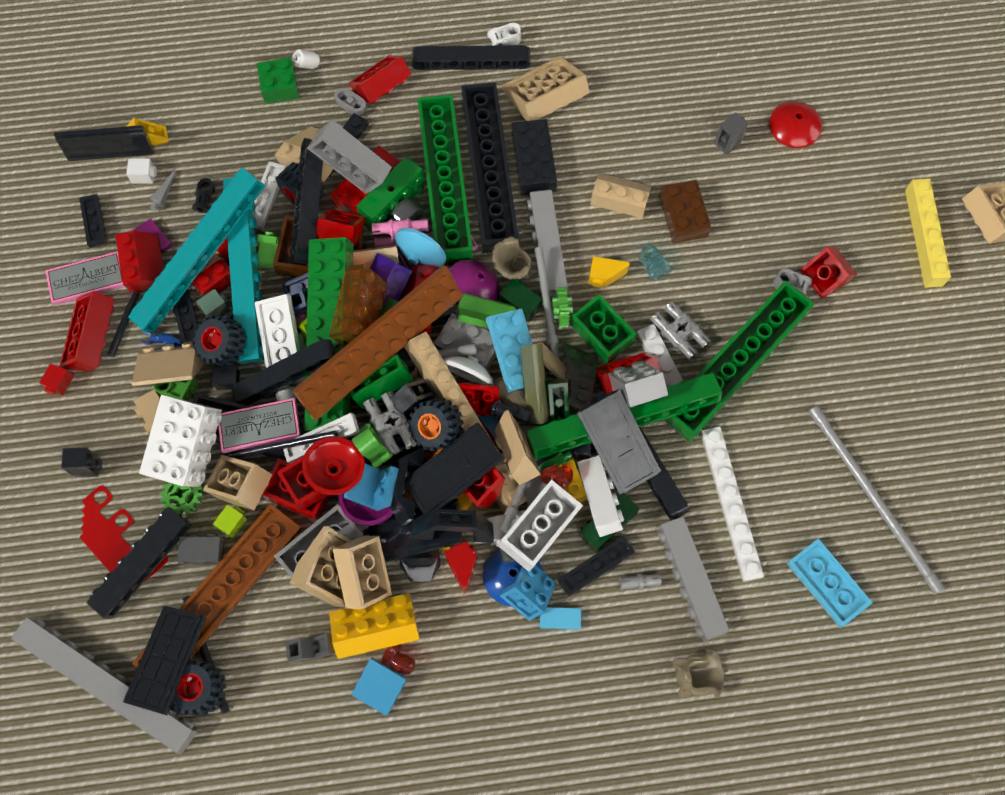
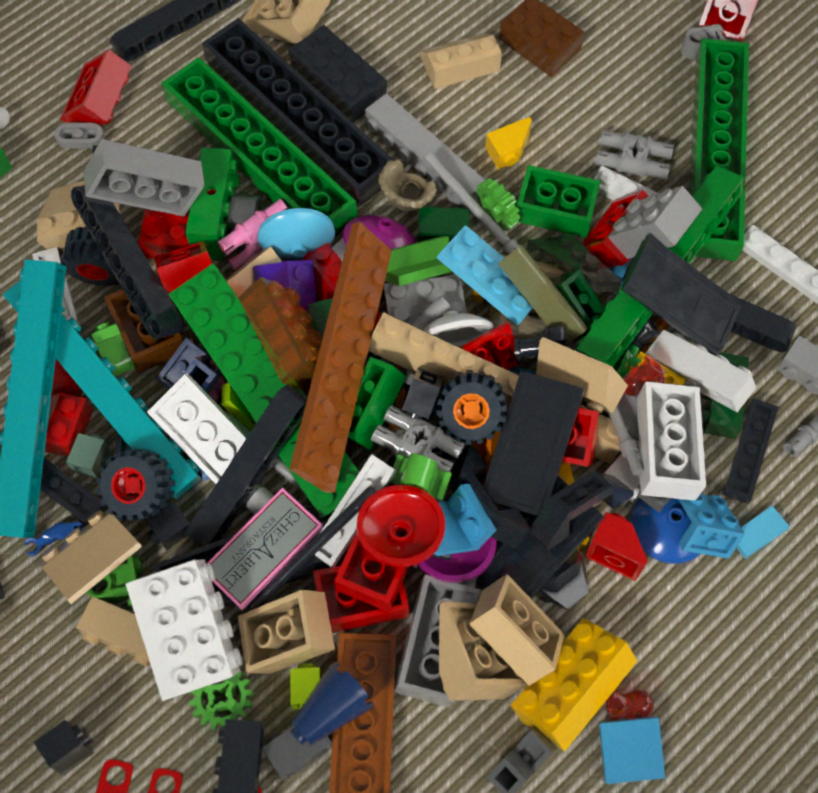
camera: 35 degrees left, 5 degrees down
(228, 540) = (330, 706): none -> dark blue cone
(653, 265) = (548, 104): clear light blue piece -> none

